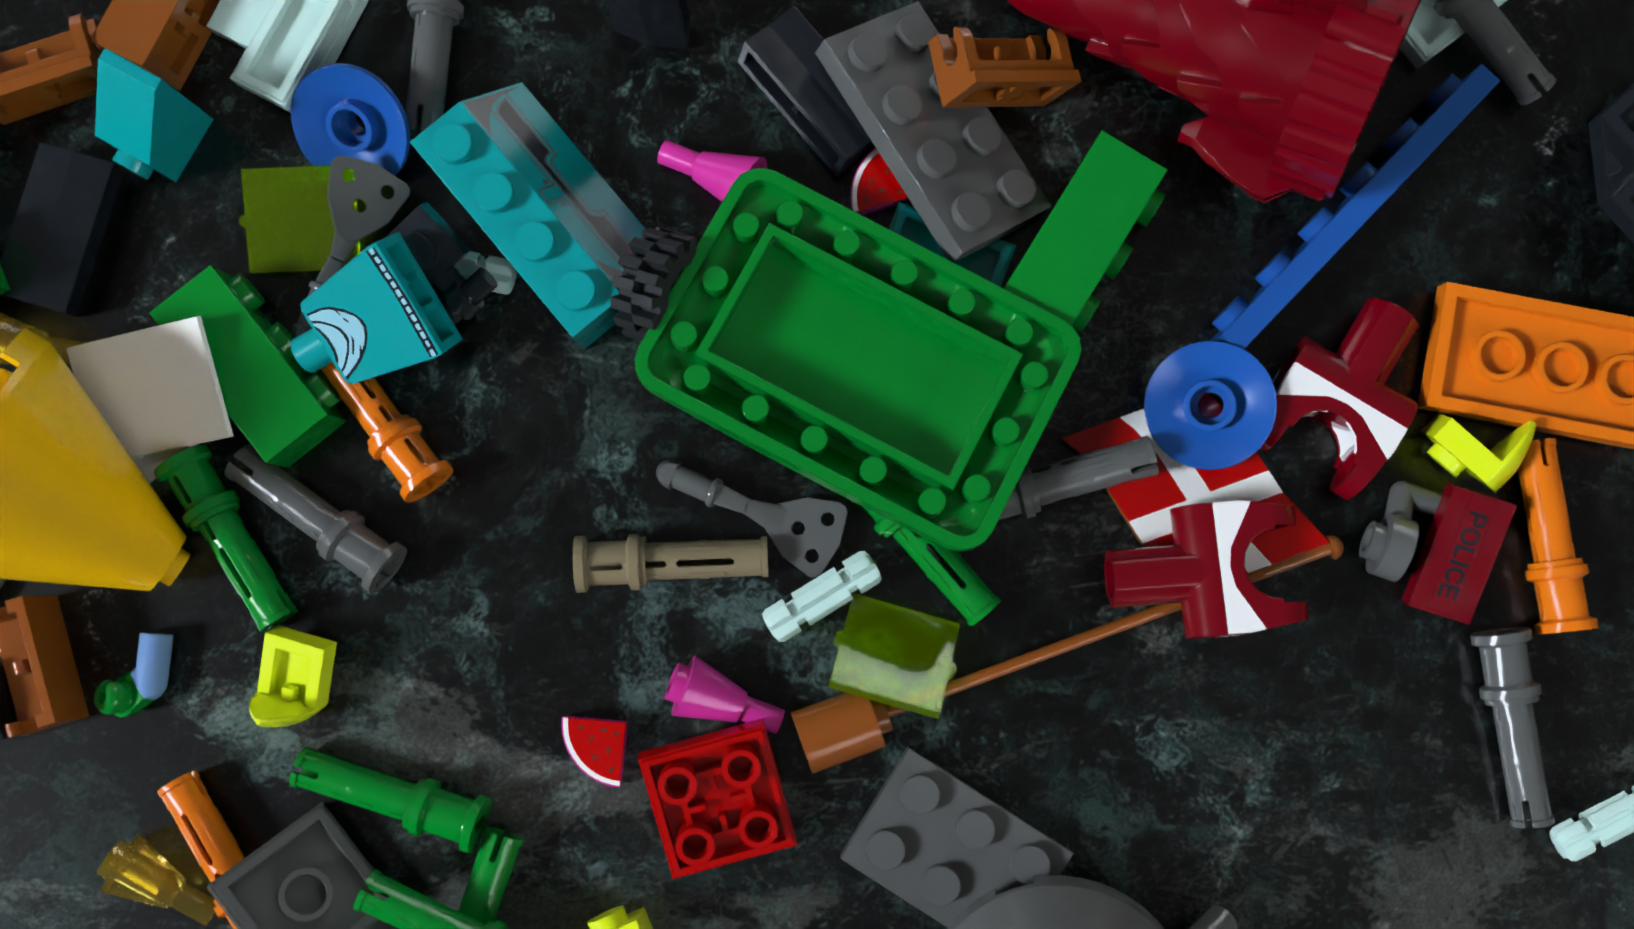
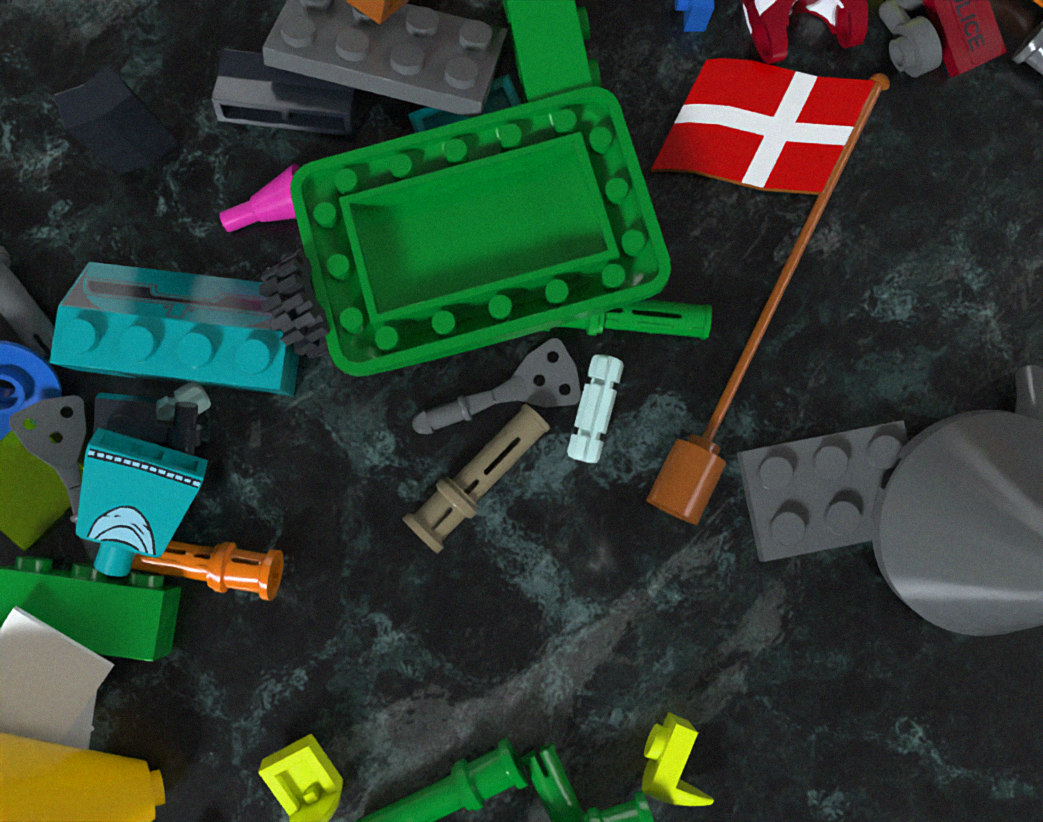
camera: 50 degrees left, 0 degrees up
(214, 514) = (149, 728): green pin -> none
(337, 534) = (245, 663): dark grey pin -> none
(597, 747) = (543, 639): red tile -> none
(707, 694) = (580, 539): dark pink cone -> none
(717, 798) = (651, 598): red tile -> none
(875, 186) = (384, 115): red tile -> none
(895, 656) = (678, 401): clear neon green piece -> none
(1081, 476) = (689, 175): dark grey pin -> none
(1205, 570) = (820, 164): dark red connector -> none
(1210, 441) = (730, 29): blue dish -> none

